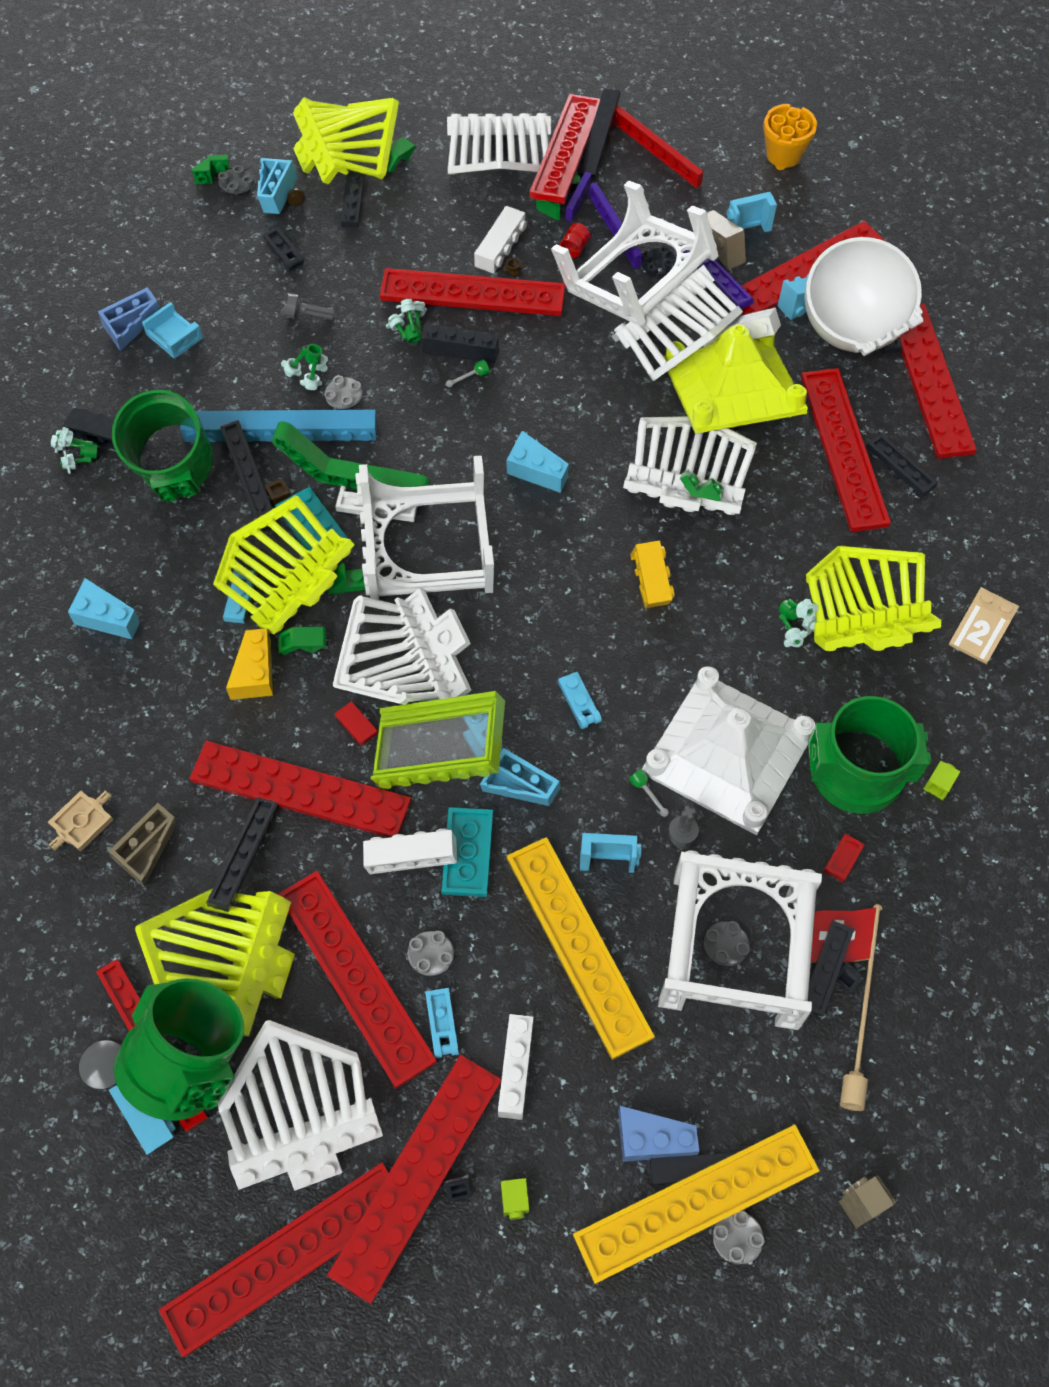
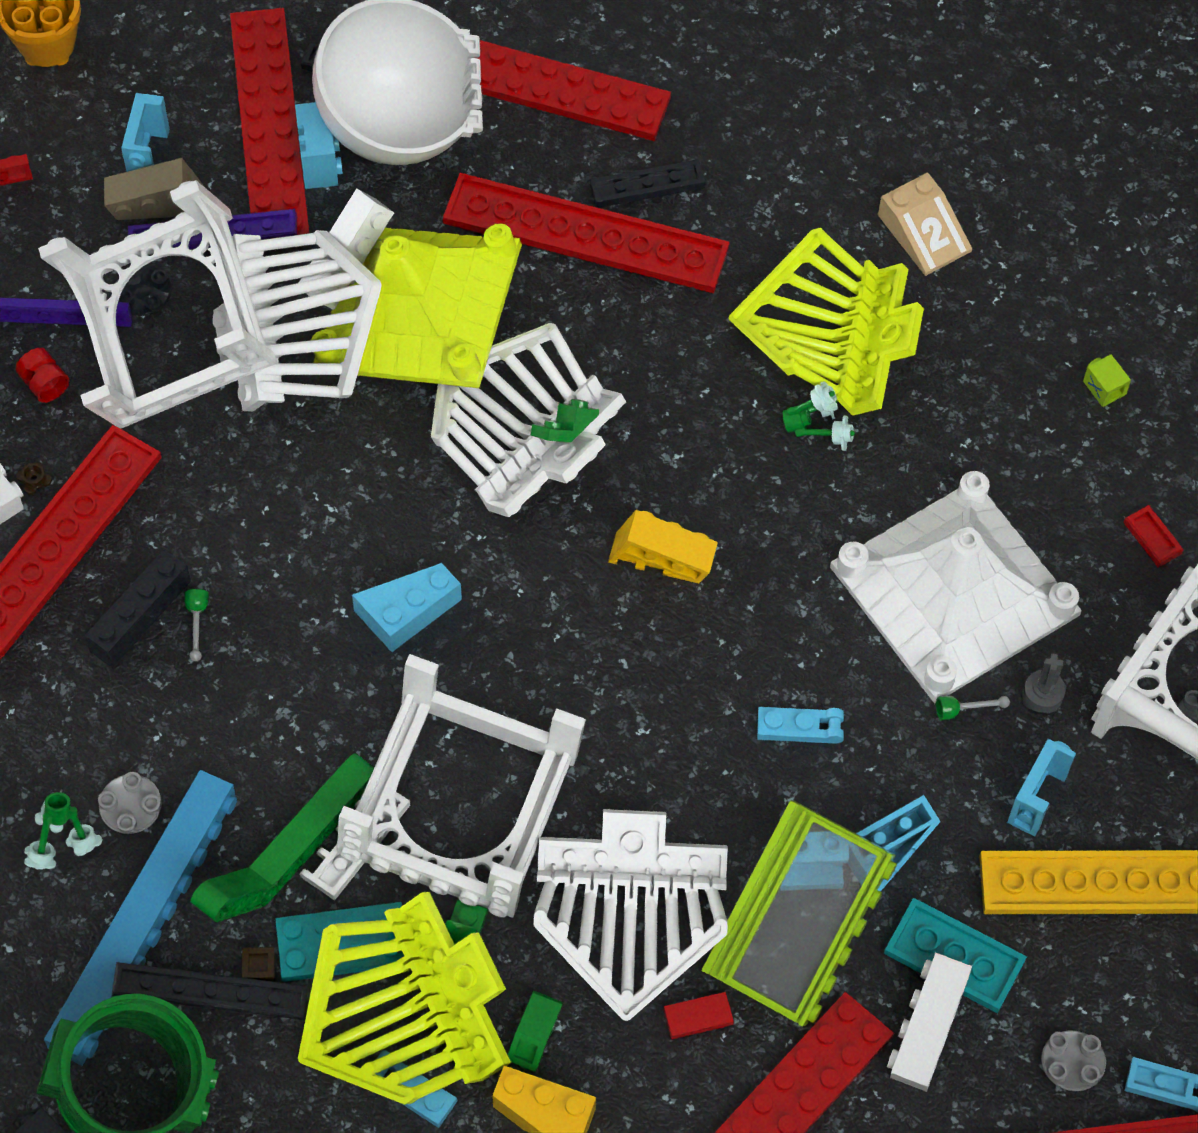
camera: 65 degrees left, 0 degrees up
(413, 309) = (47, 644): plant -> none
(856, 788) = (1043, 481): green cylinder -> none

